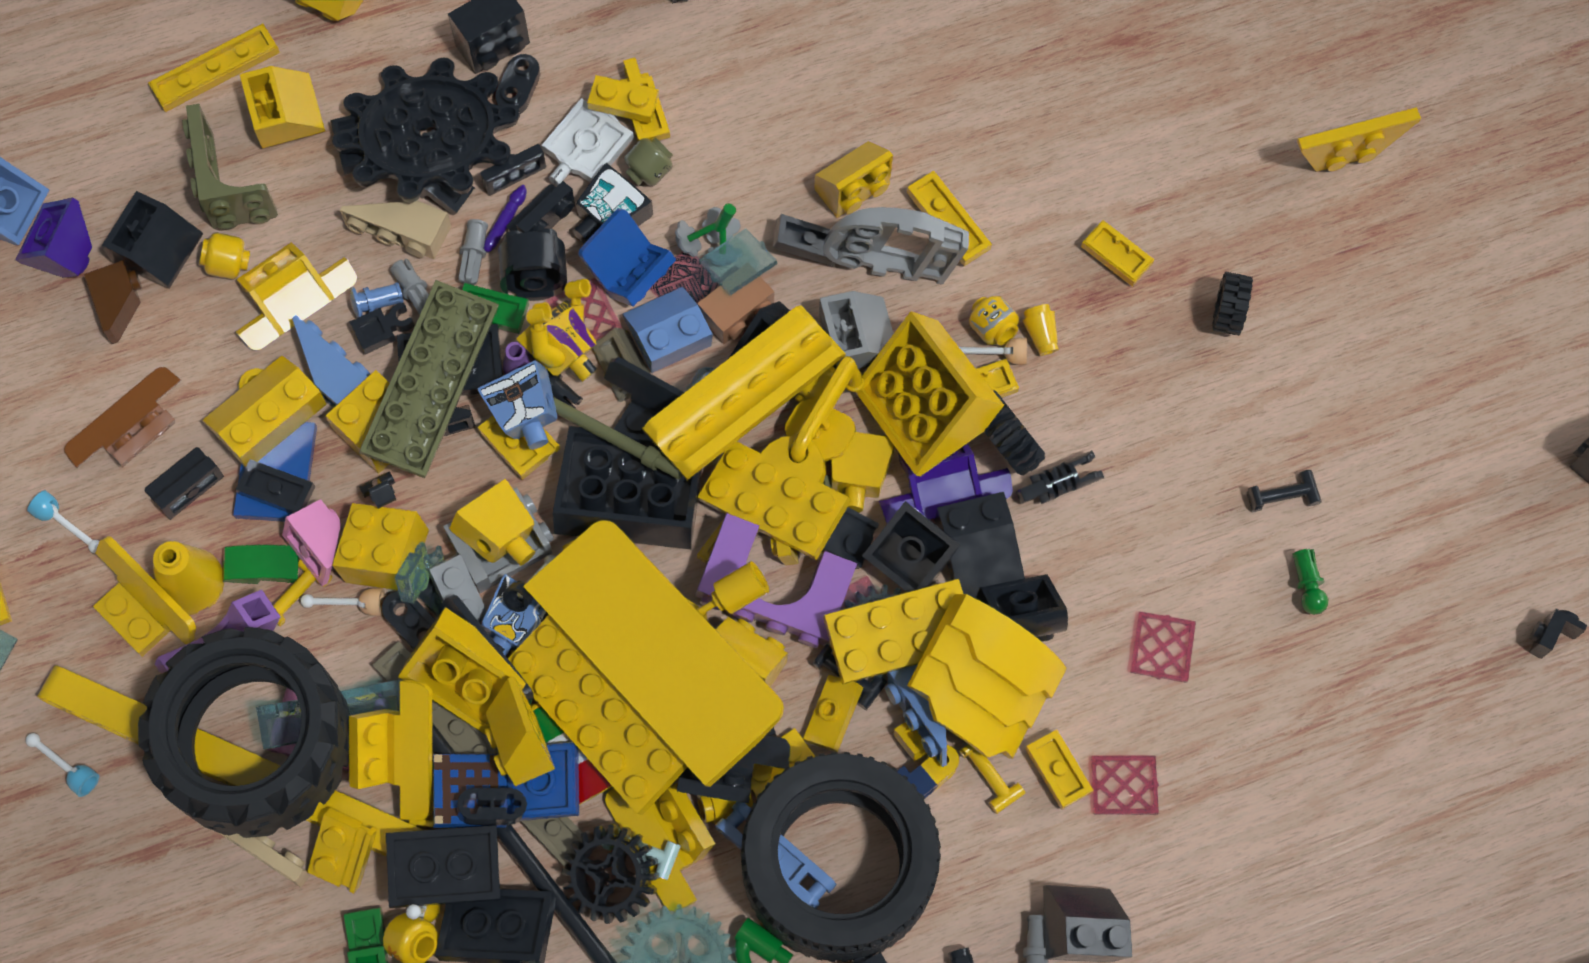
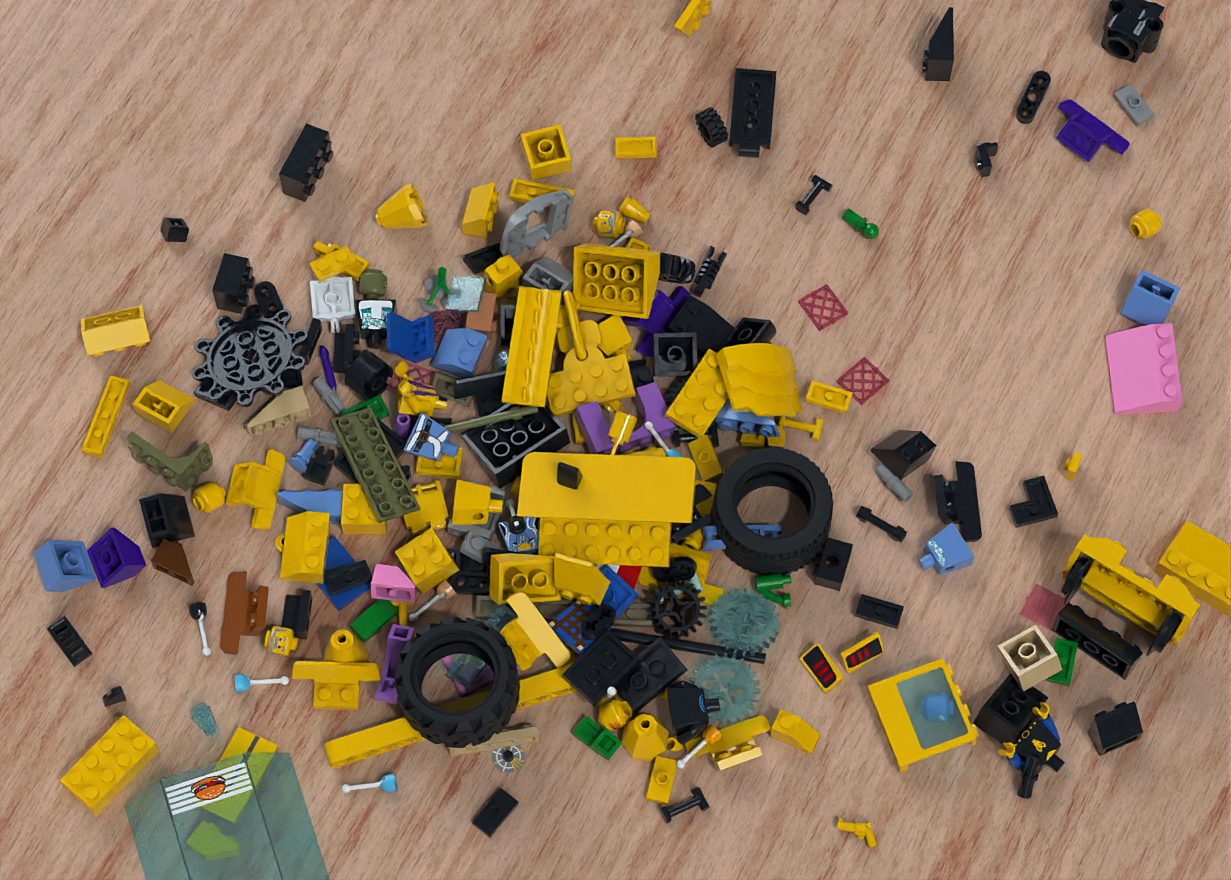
camera: 40 degrees left, 5 degrees down
(81, 382) = (198, 612): none -> hinge
(130, 496) = (280, 641): none -> yellow head
(163, 930) = (495, 813): none -> black plate
(246, 876) = (508, 758): none -> light grey piece
(341, 850) = (545, 704): yellow plate -> none
(380, 490) = (396, 535): black piece -> none
(412, 575) = (458, 557): clear light blue plate -> none
(449, 483) = (432, 509): none -> yellow plate
(621, 592) = (568, 476): none -> black slope
(656, 826) = (676, 570): none -> black plate
(768, 102) = (402, 210): none -> yellow cone
(792, 674) = (668, 452): none -> white hinge
(803, 277) = (503, 276): none -> yellow torso
(999, 170) = (546, 152): none -> yellow brick
(1313, 318) = (752, 104): none -> black hinge

